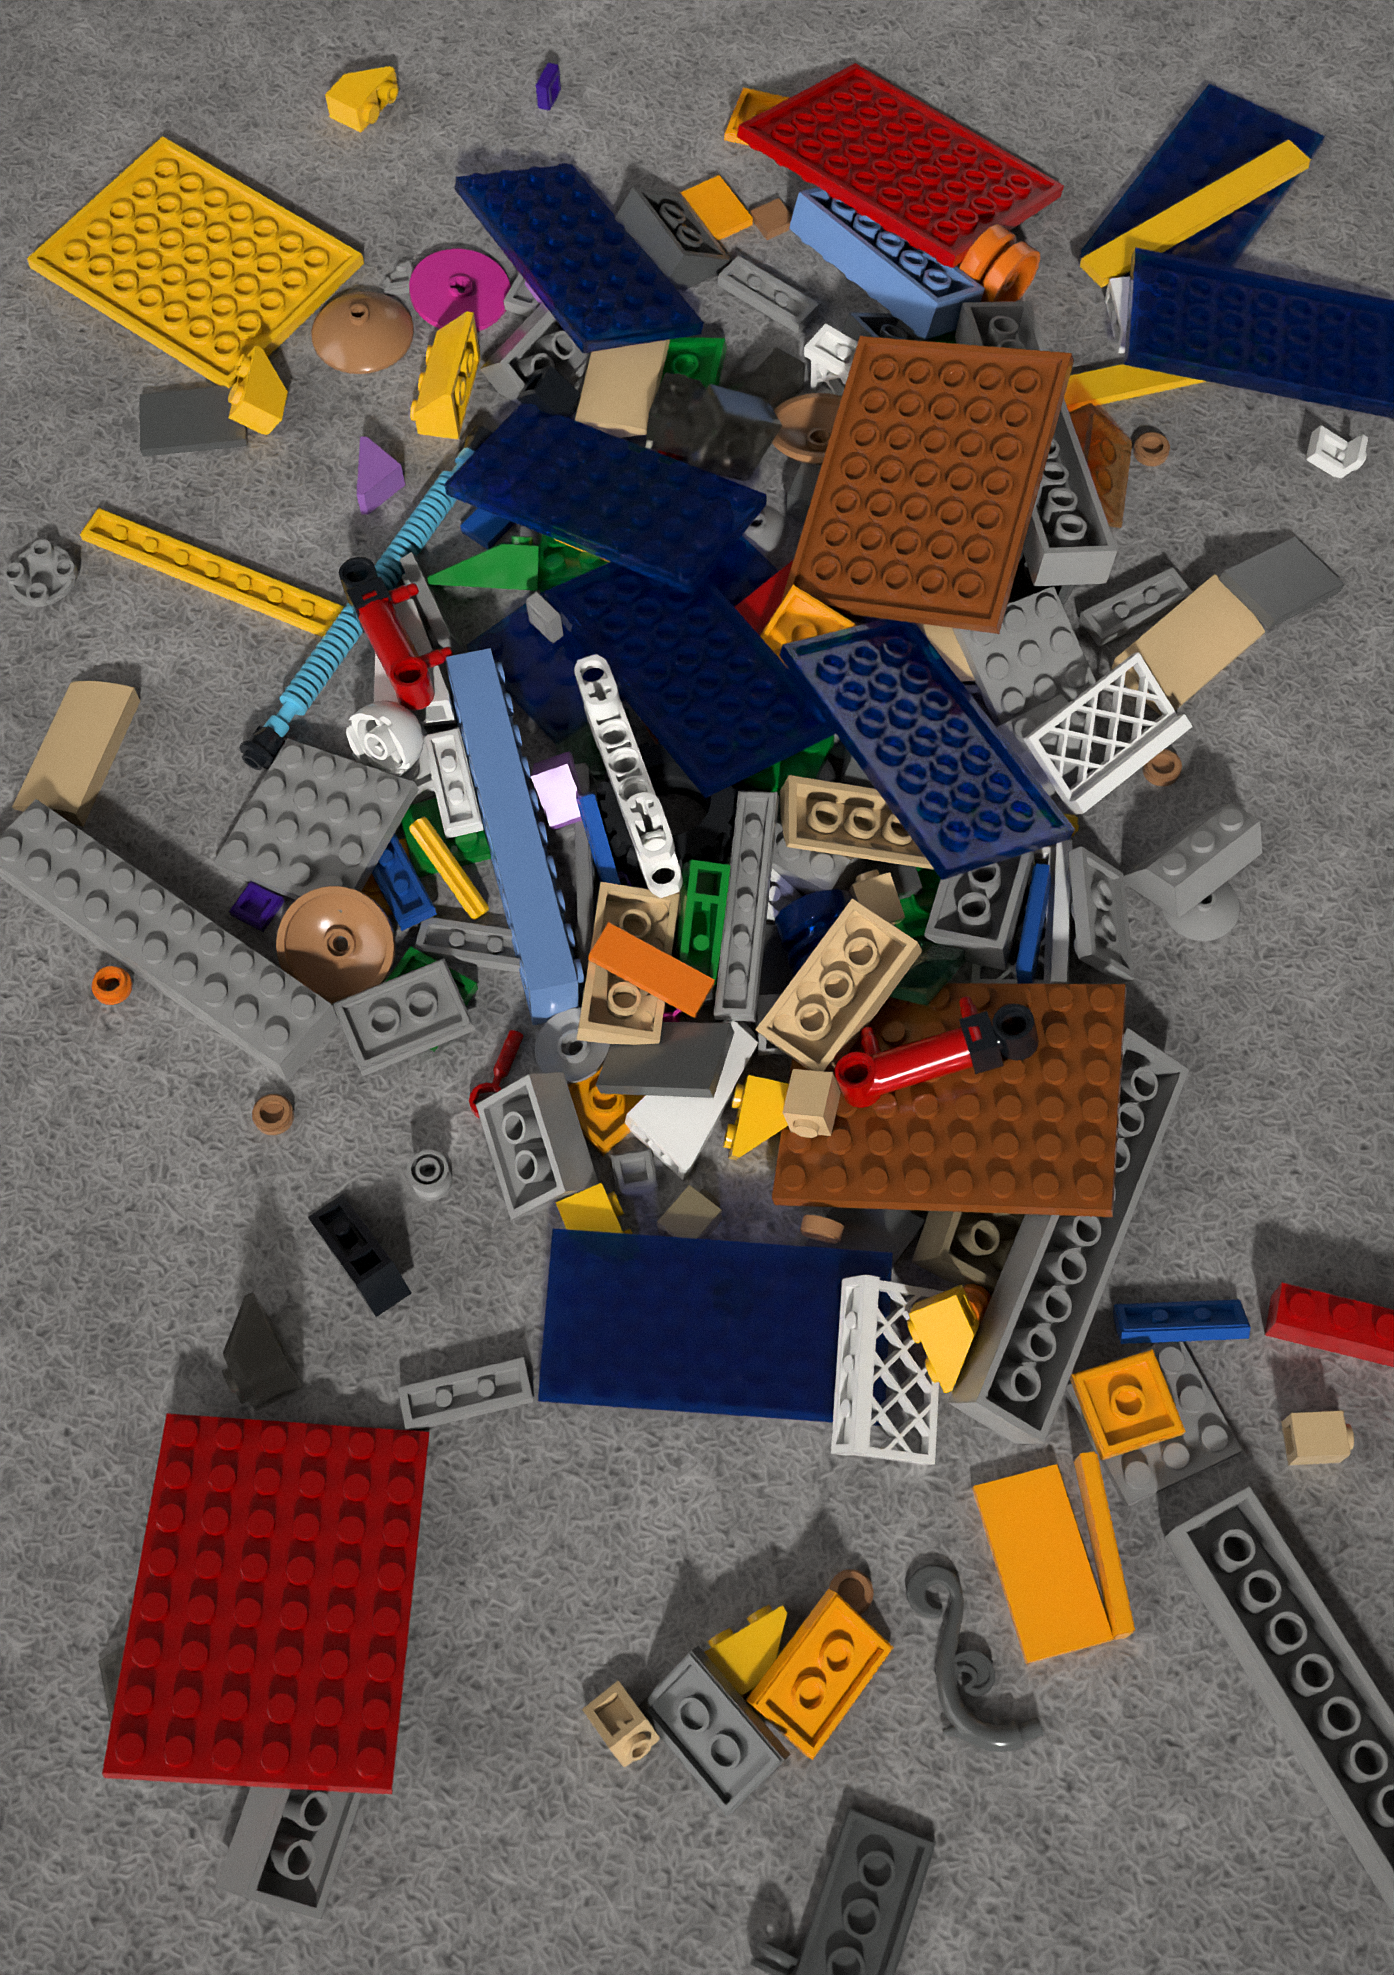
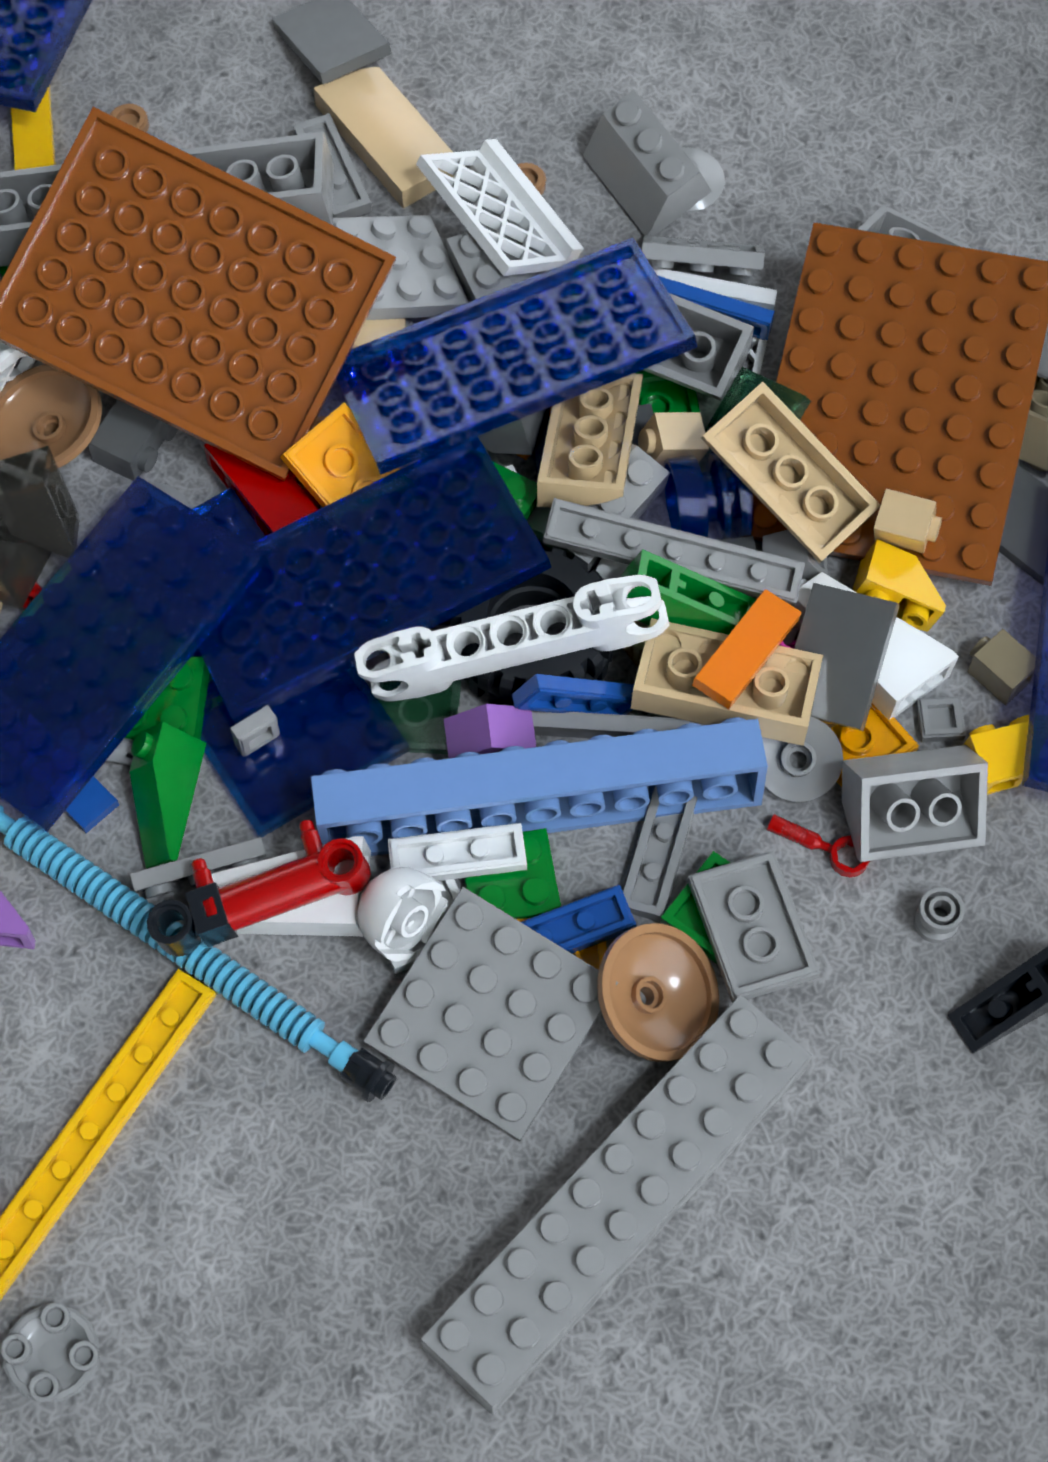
camera: 85 degrees left, 0 degrees up
(79, 749) = (332, 1308): tan slope -> none
(104, 977) = (671, 1250): orange plate -> none
(256, 906) = (580, 1093): dark purple tile -> none
(273, 1114) = (848, 1084): medium nougat tile -> none
(449, 868) = (567, 867): yellow axle -> none
(821, 1229) = (1025, 542): medium nougat tile -> none
(972, 1045) = (874, 391): red piece -> none

